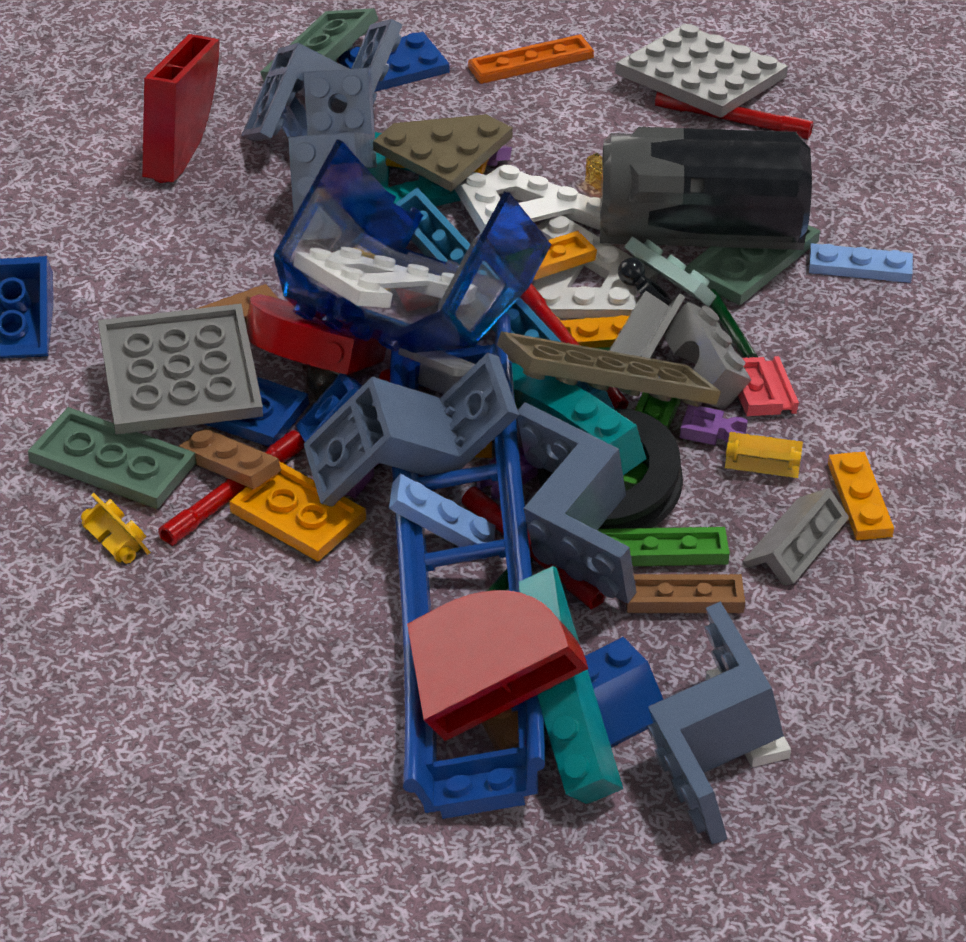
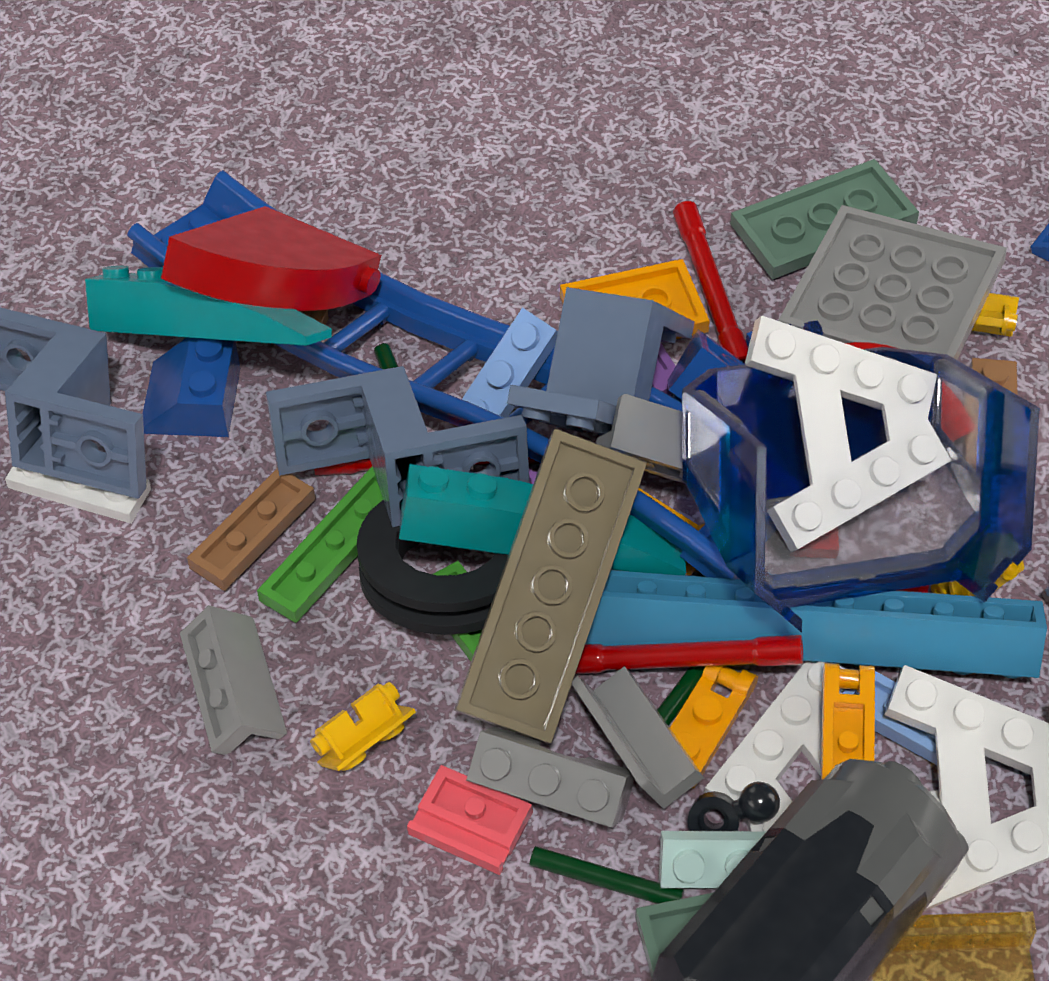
camera: 130 degrees right, 10 degrees up
(124, 538) = (721, 179): yellow hinge -> none
(232, 458) = (737, 287): medium nougat plate -> none
(708, 425) = (443, 724): medium lavender plate -> none
(860, 495) = (233, 792): light orange plate -> none

